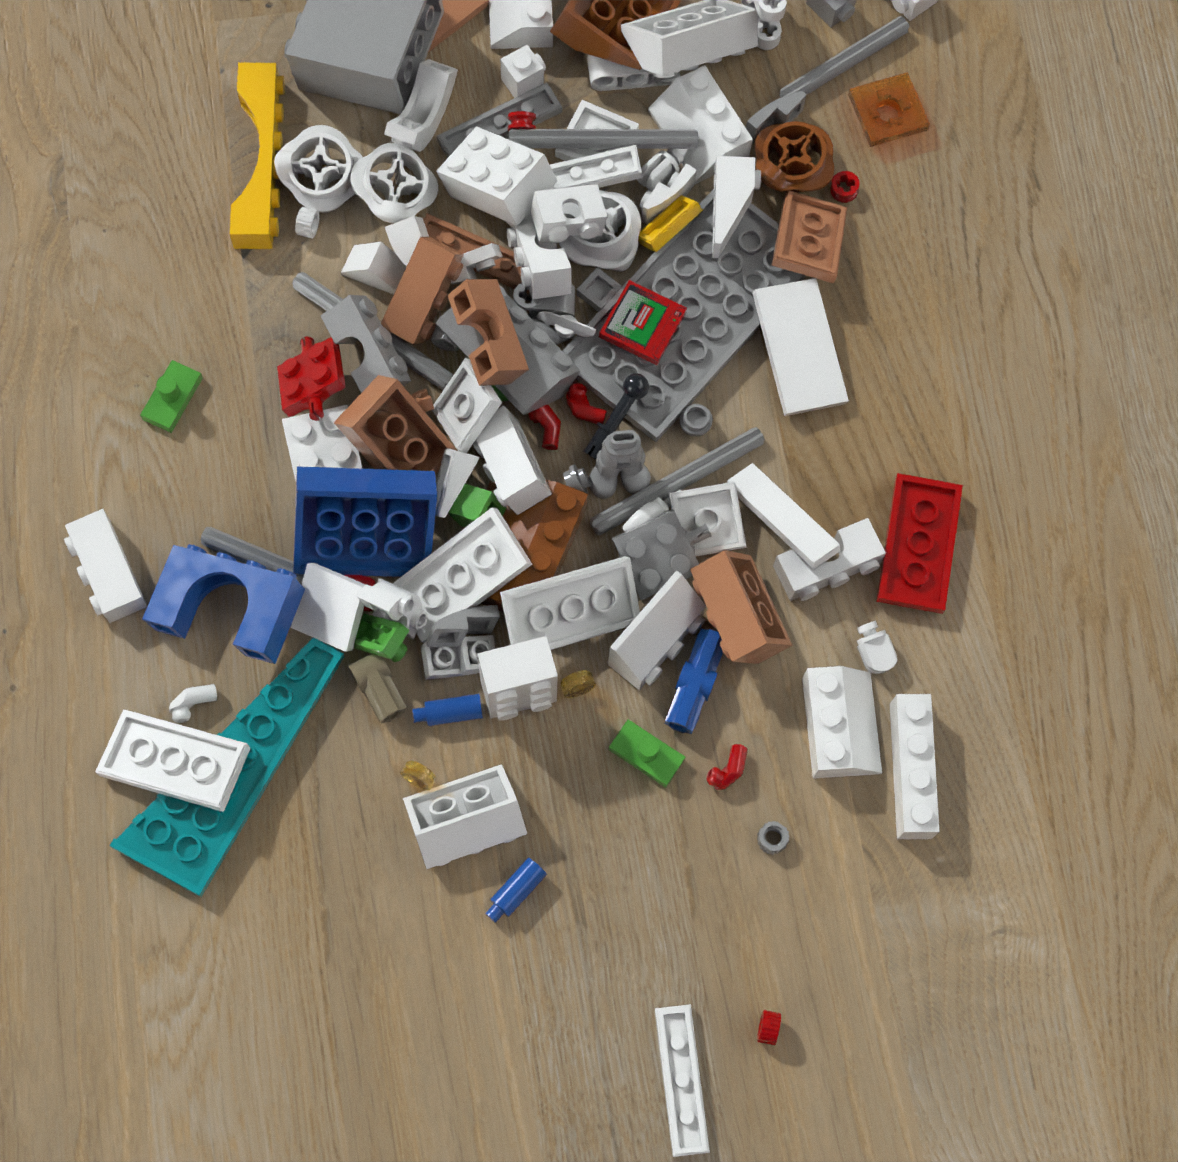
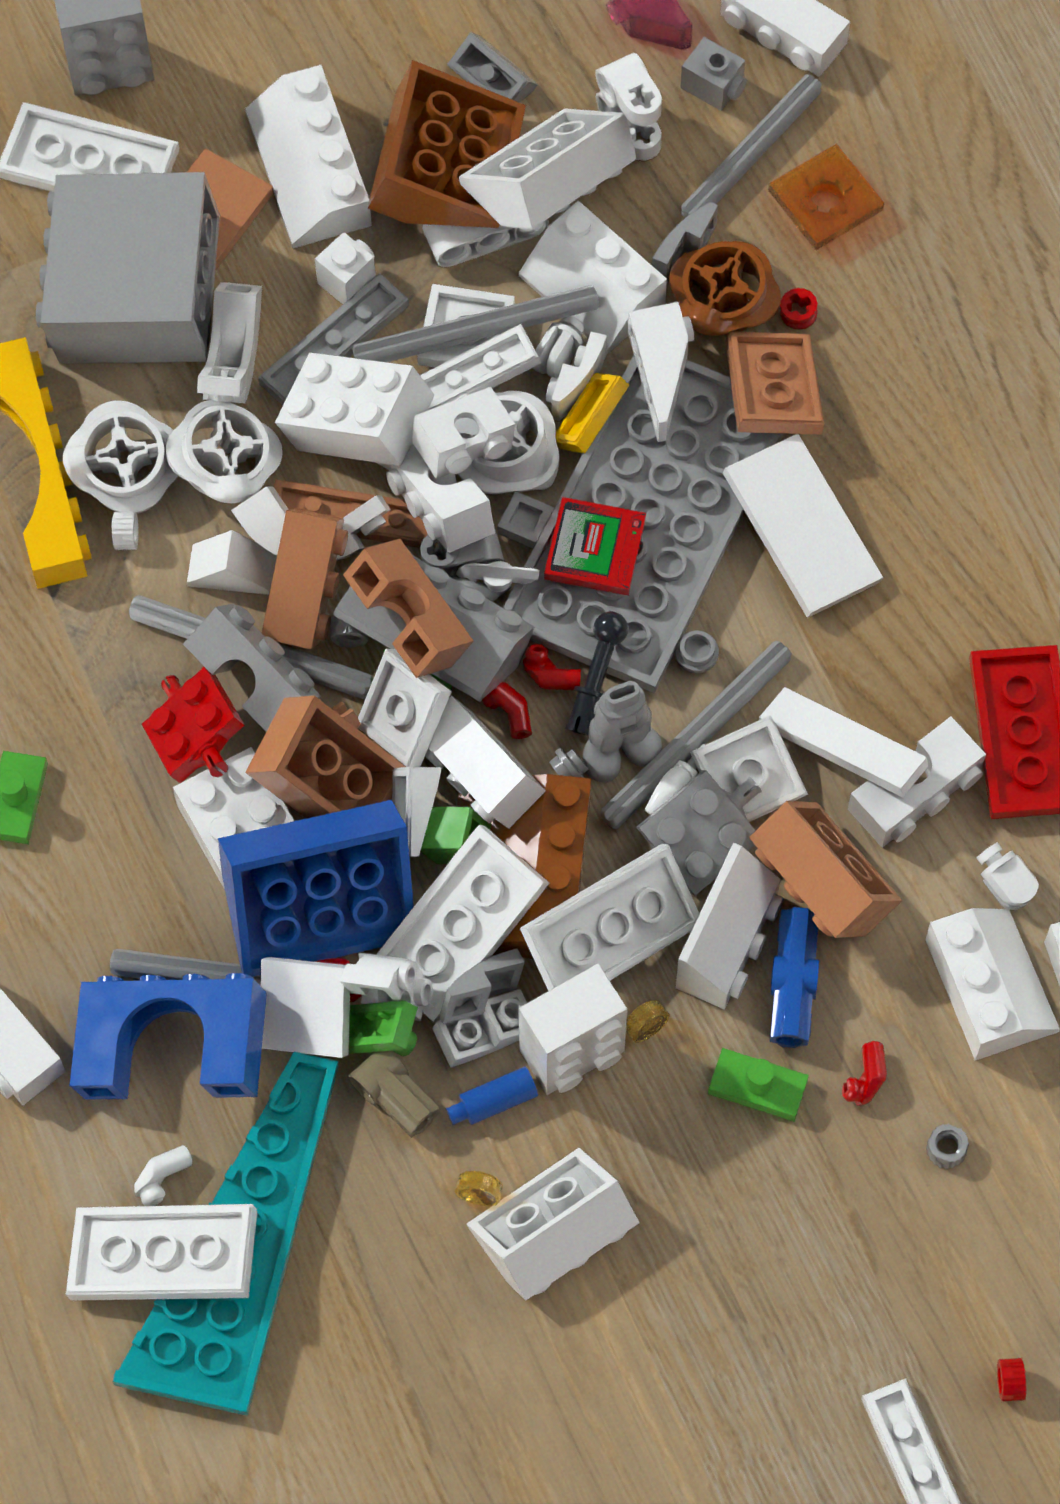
camera: 10 degrees left, 5 degrees down
(515, 890) = (644, 1297): blue cylinder -> none
(521, 120) = (364, 330): red bush -> none

